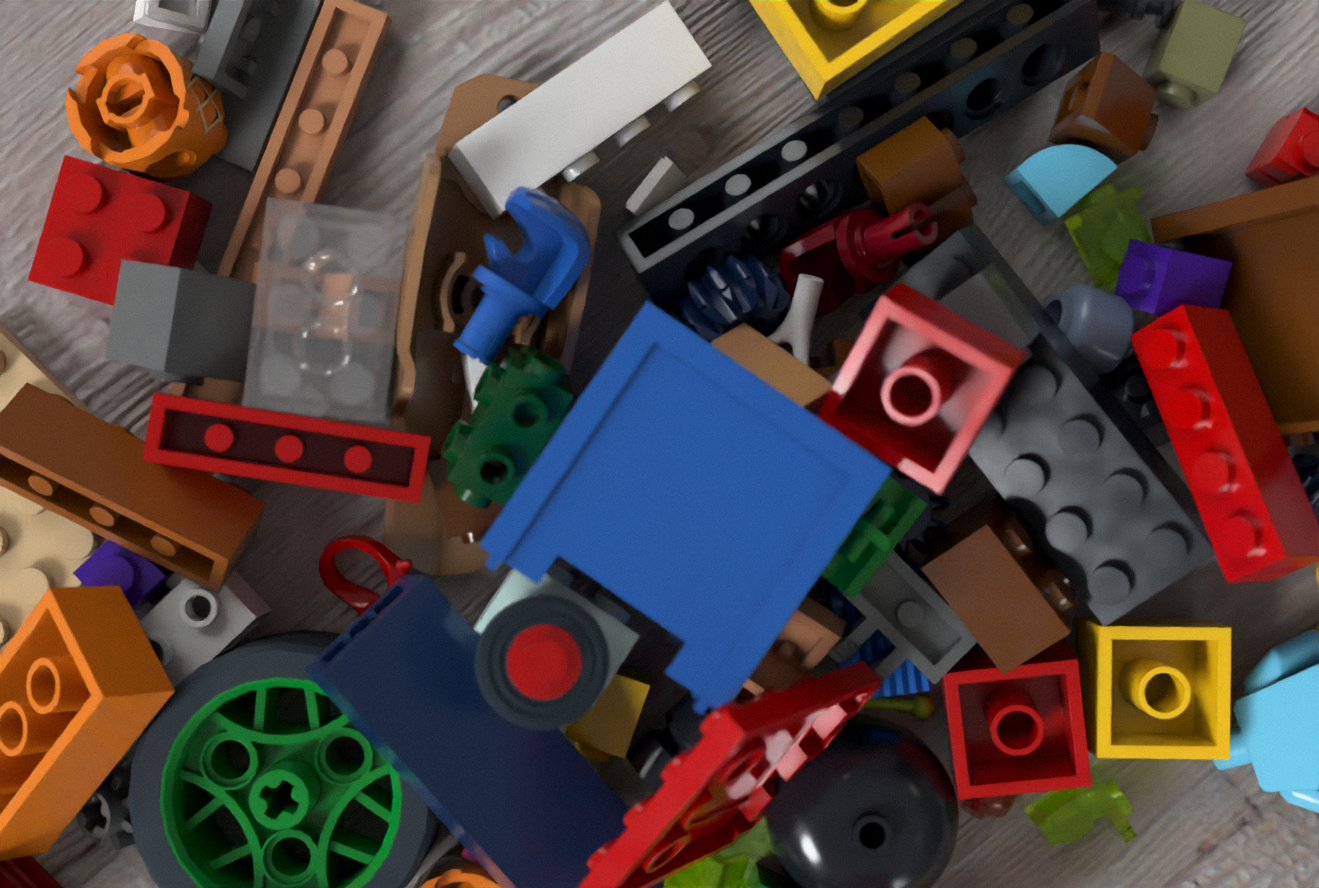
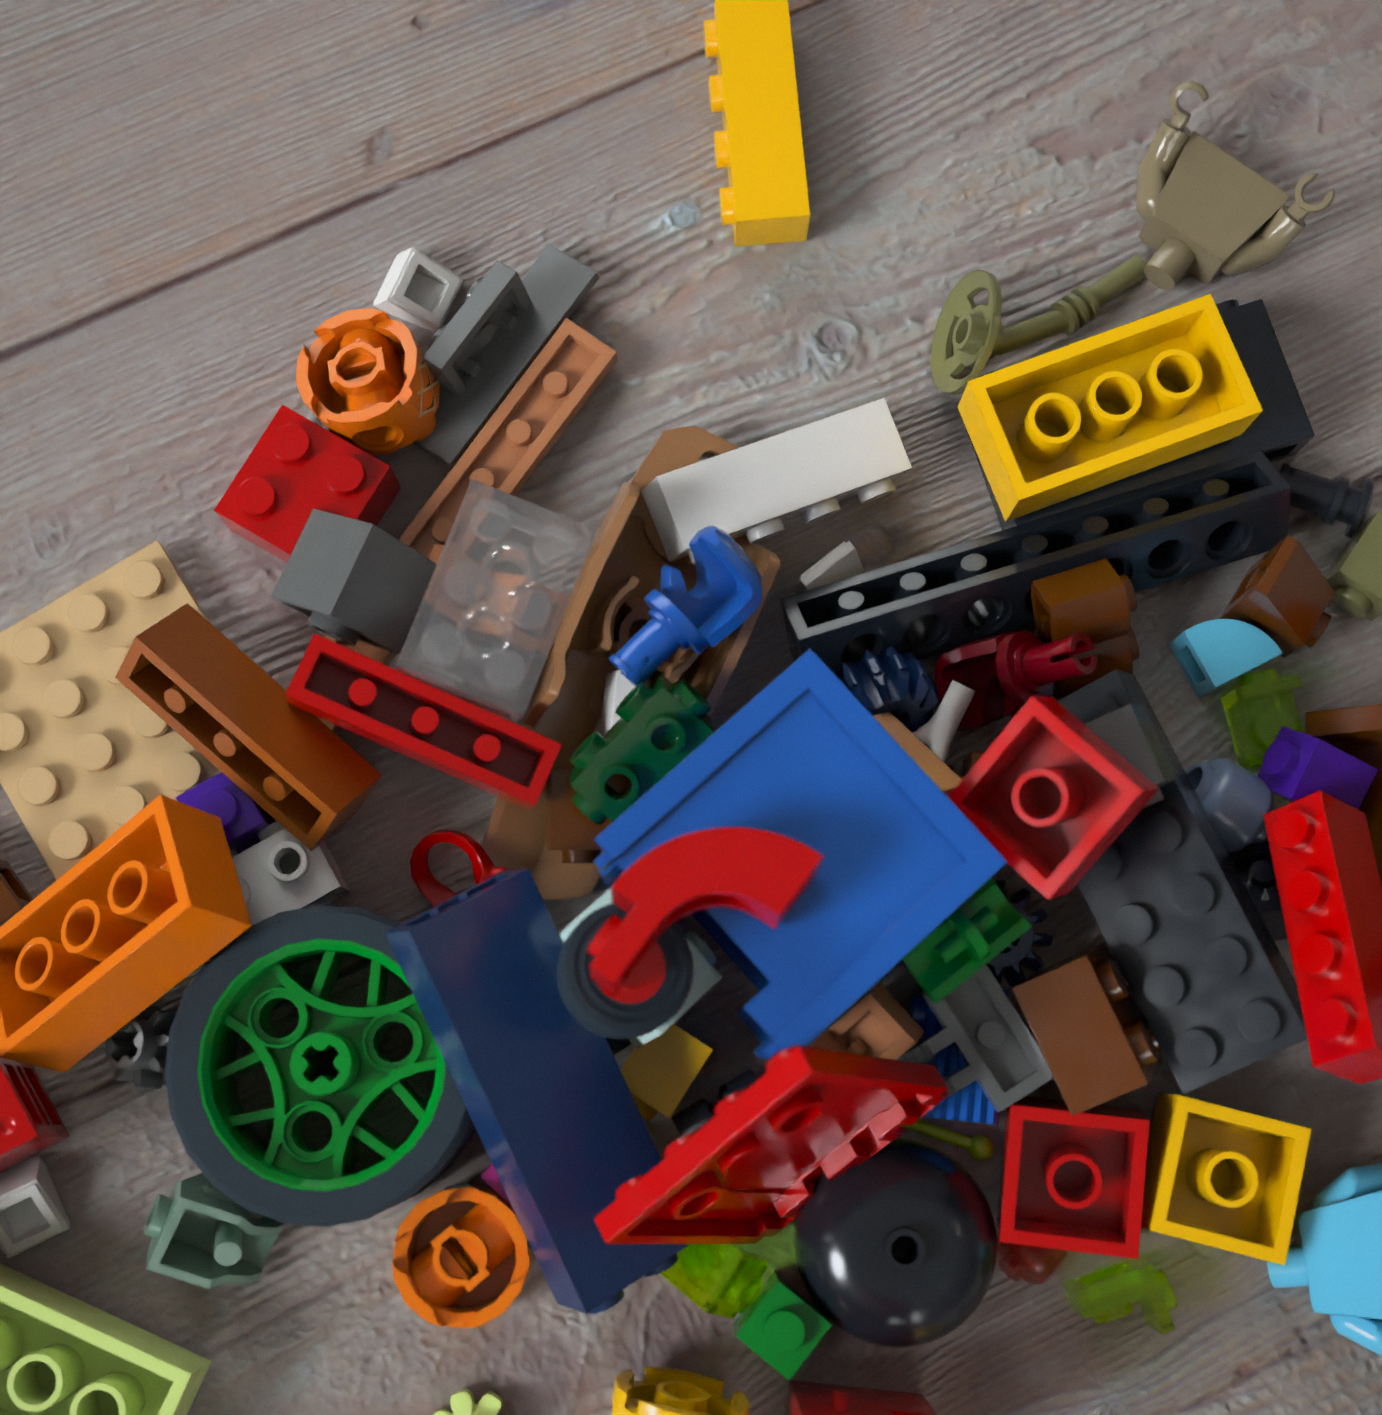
camera: 10 degrees right, 10 degrees down
(586, 558) = (695, 872): none -> red arch

